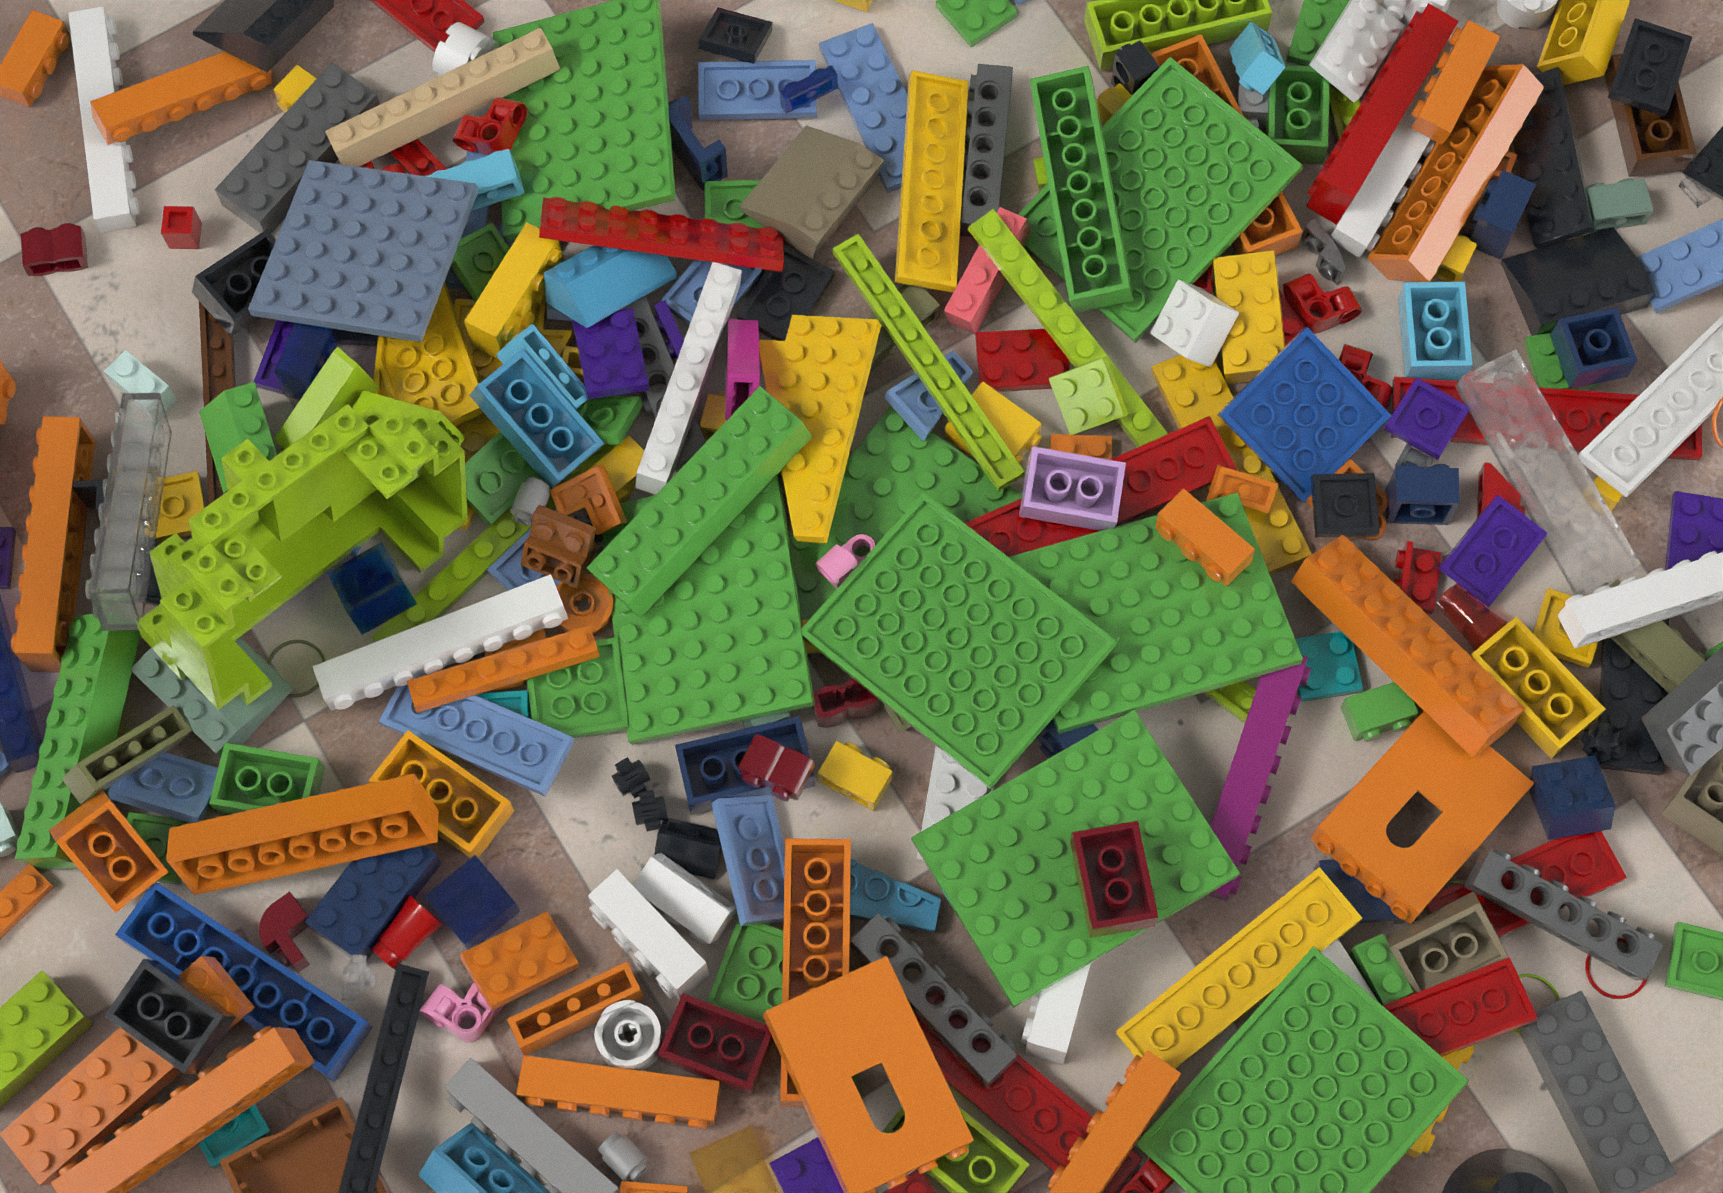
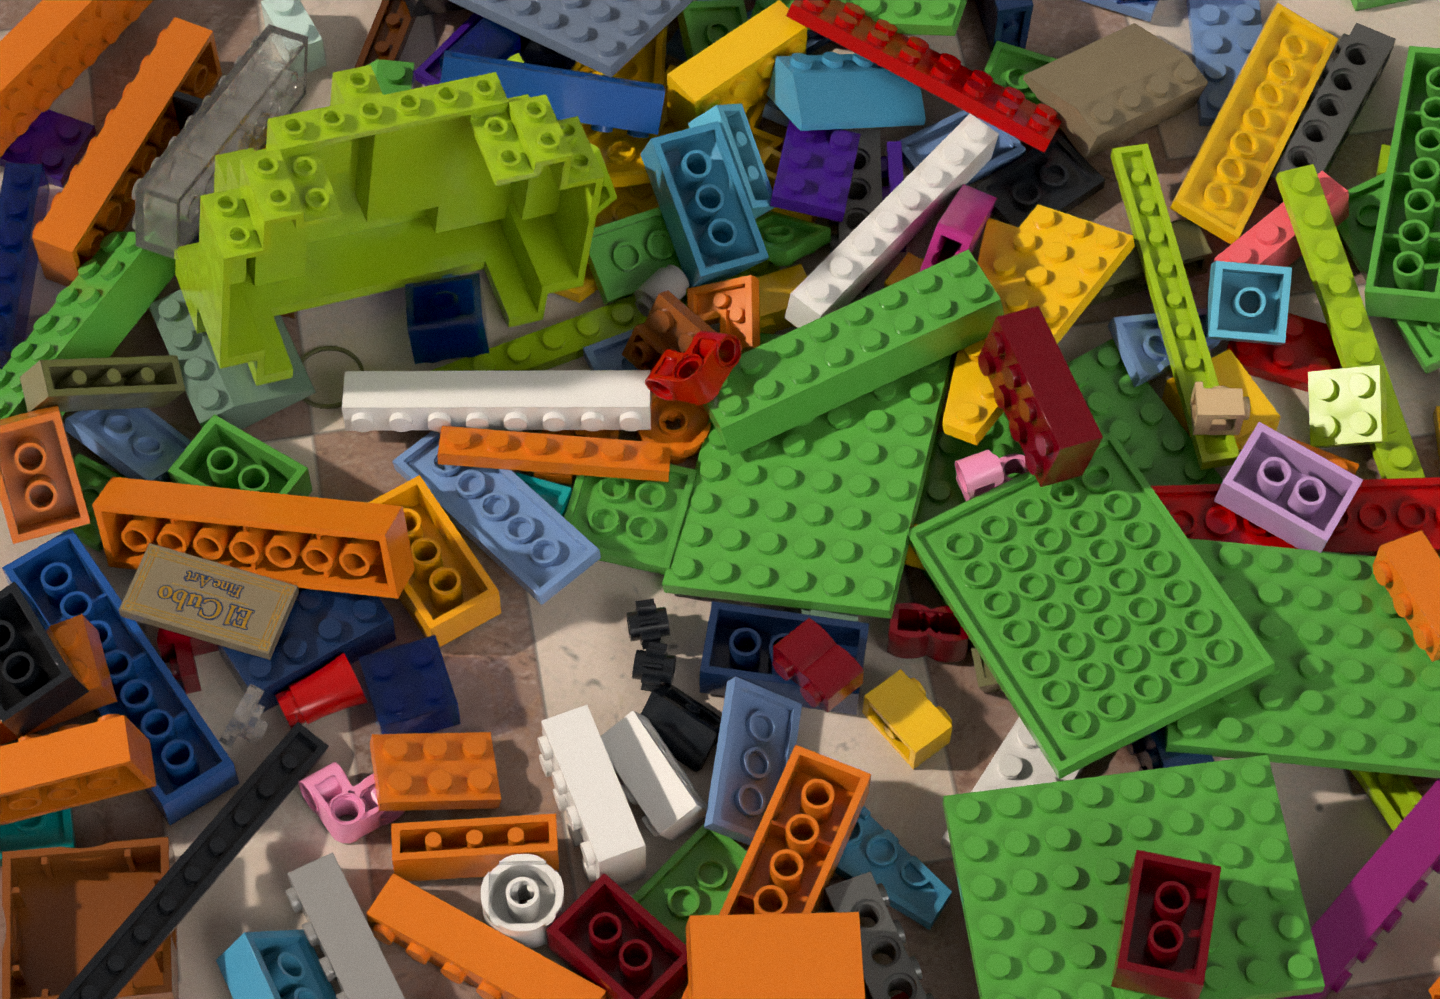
camera: 20 degrees right, 10 degrees down
(290, 899) = (209, 601): none -> dark tan tile
(379, 373) = (592, 97): none -> blue brick
(592, 567) = (697, 372): none -> red piece
(862, 492) = (1039, 396): none -> dark red brick
(984, 341) = (1248, 302): none -> medium azure brick
(996, 442) = (1218, 410): none -> tan brick

